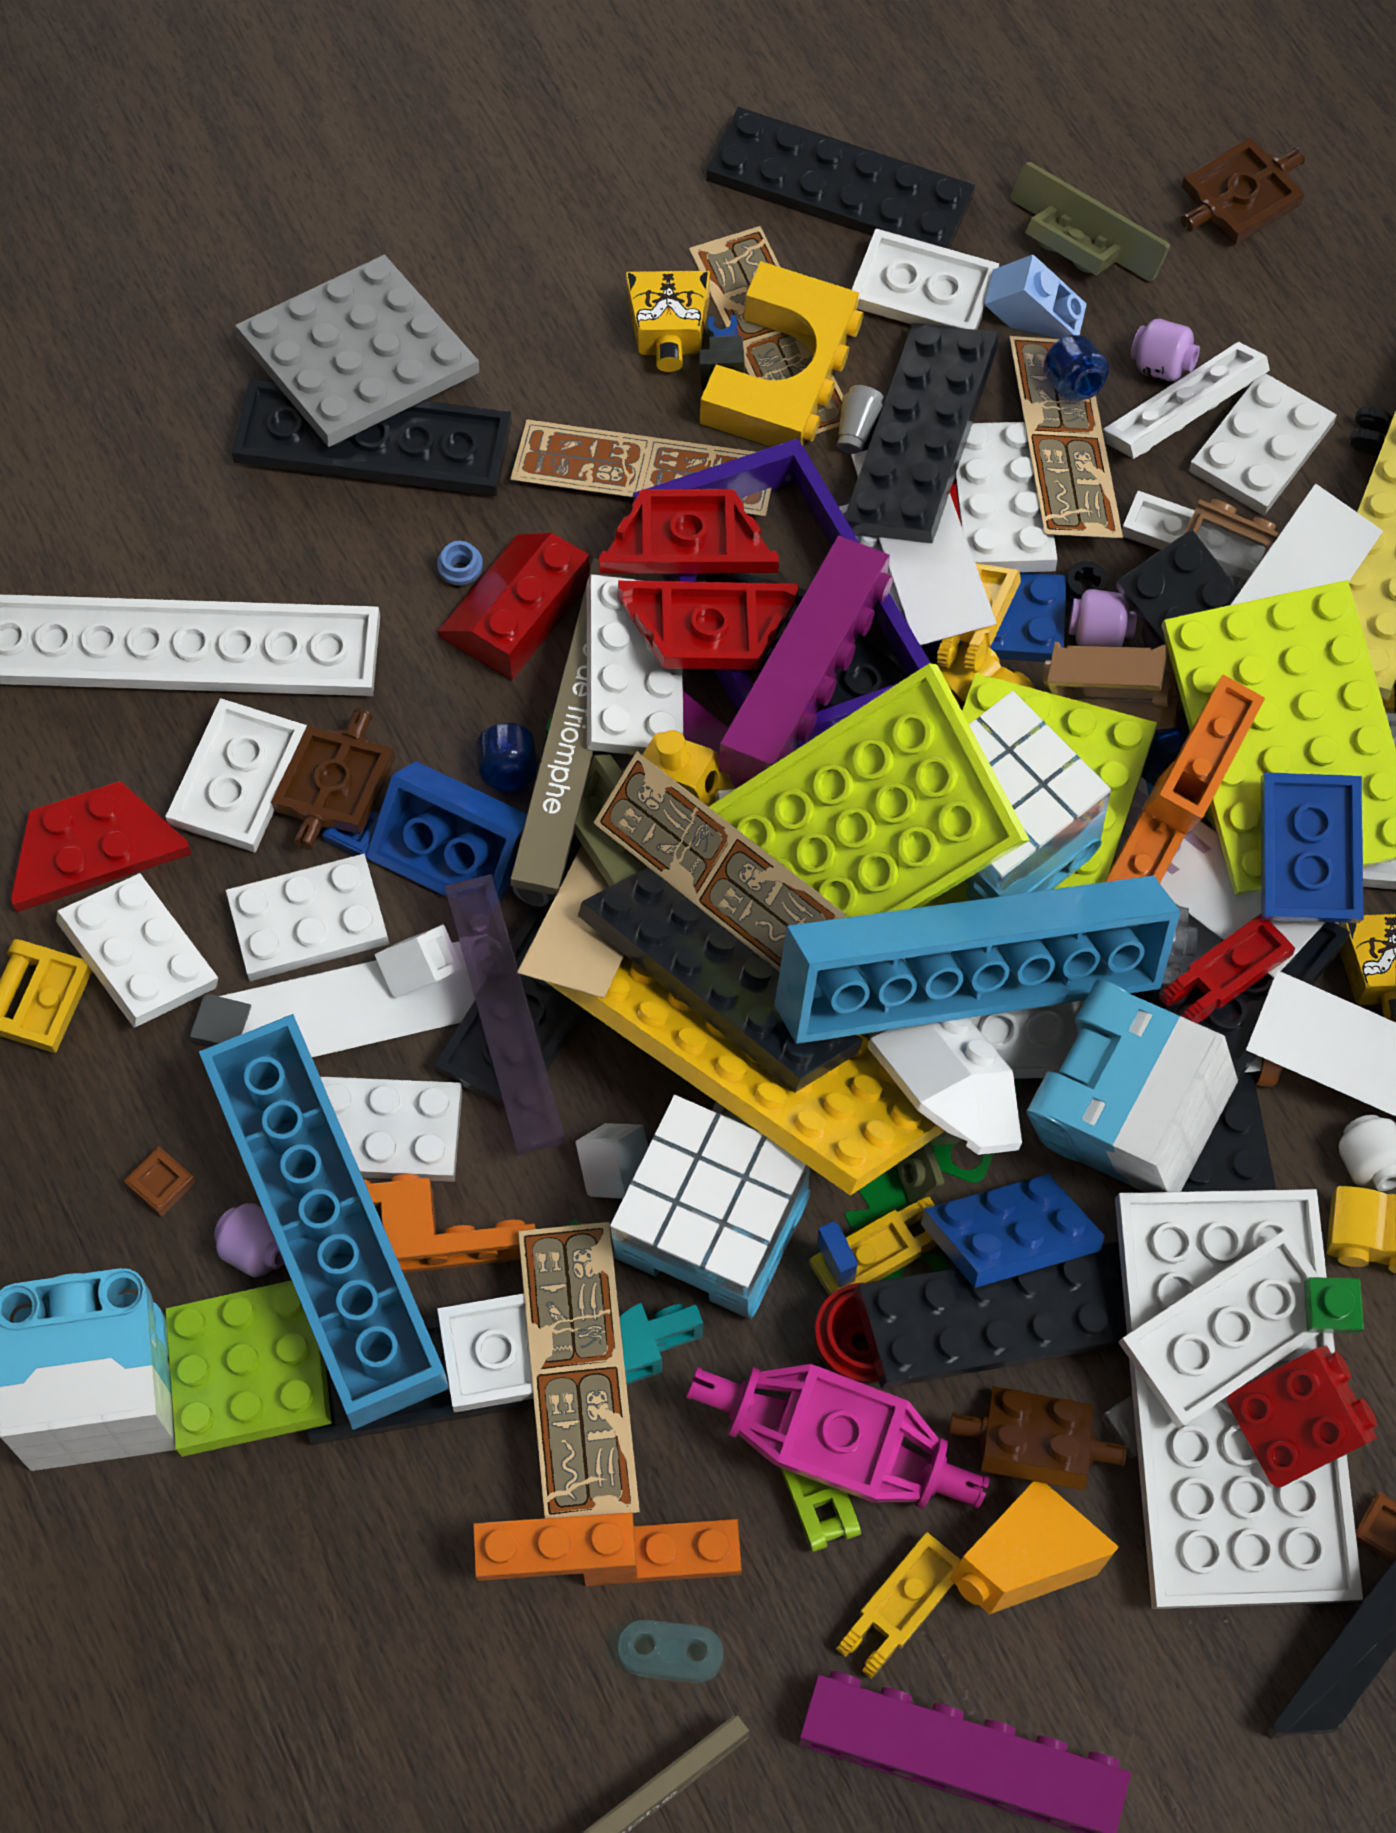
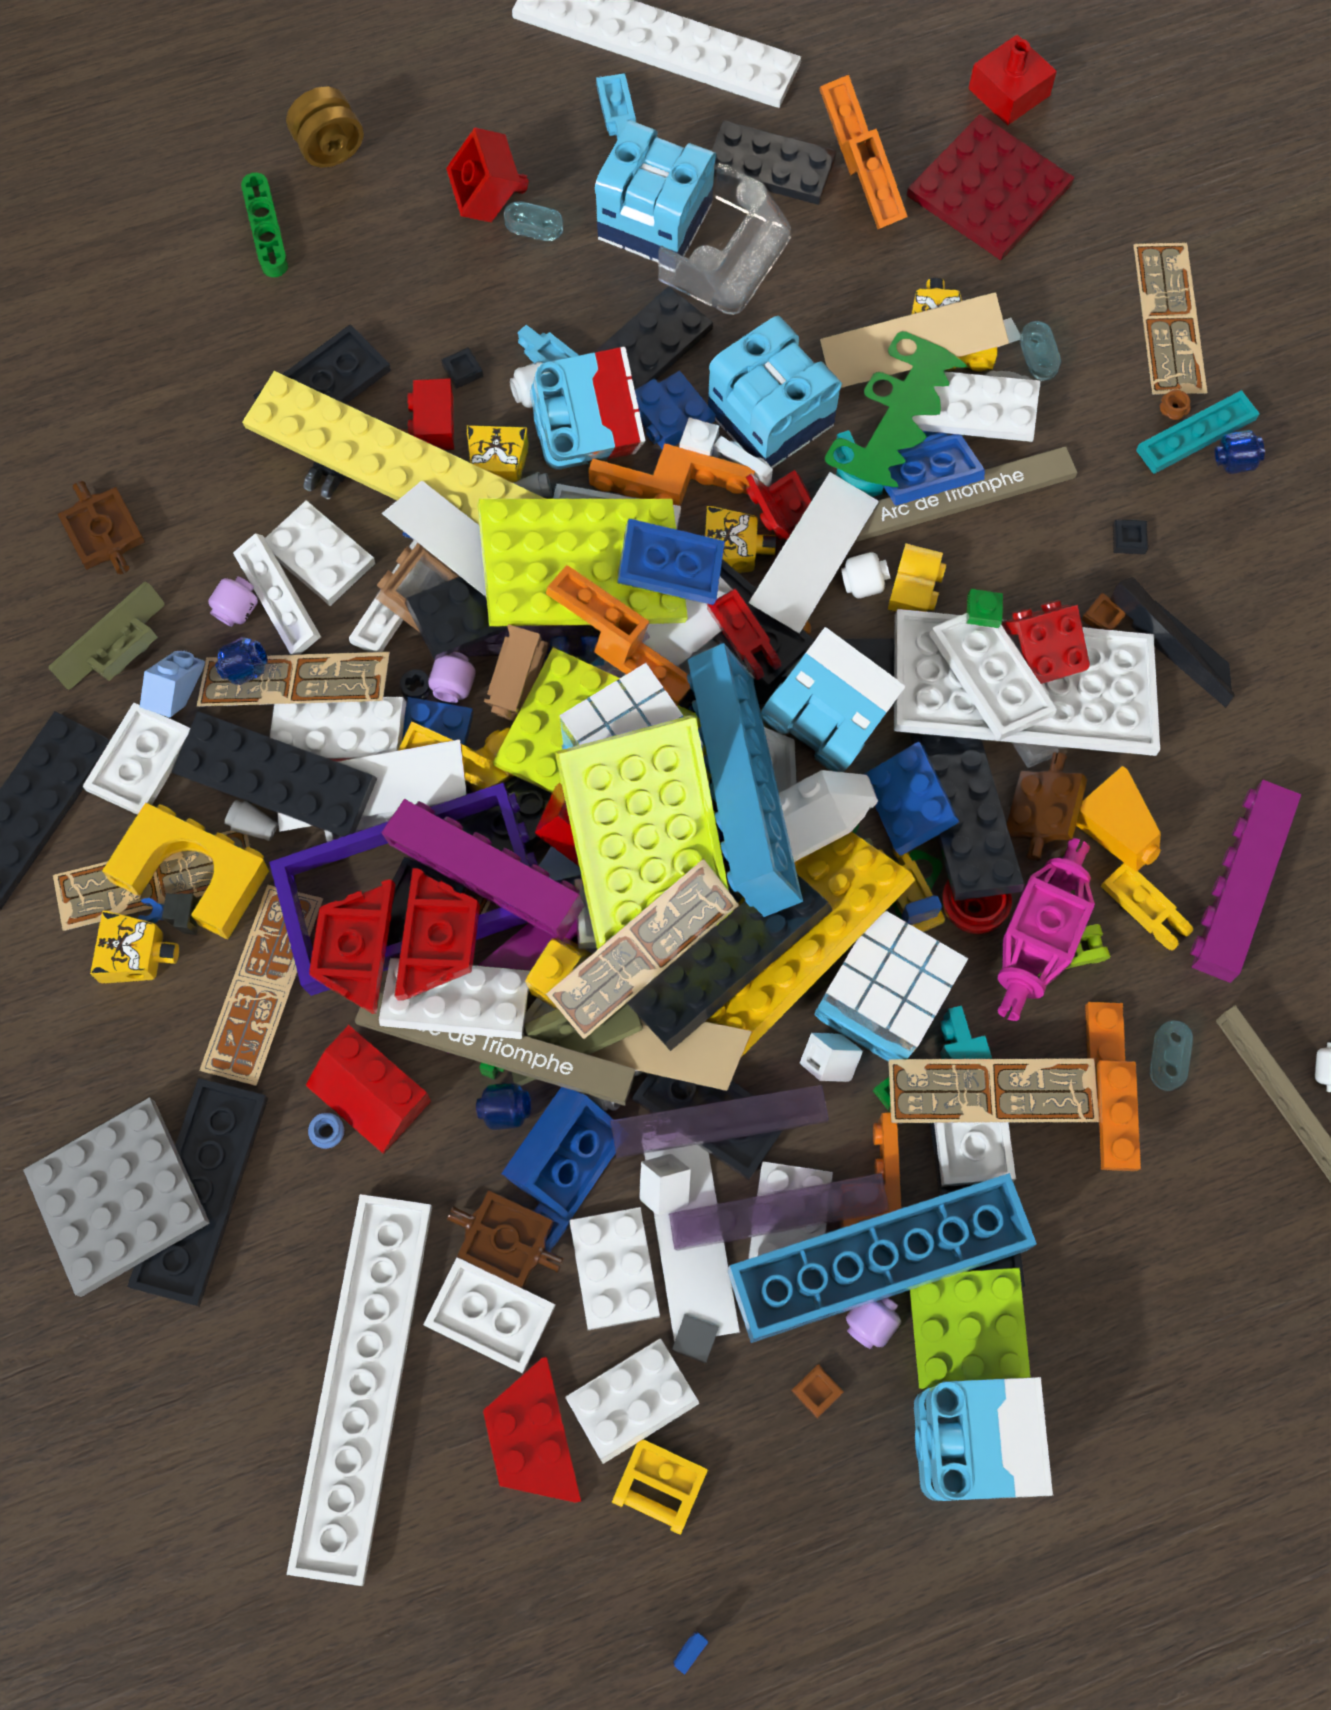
camera: 85 degrees left, 5 degrees up
(387, 1103) = (779, 1212): none -> clear purple plate

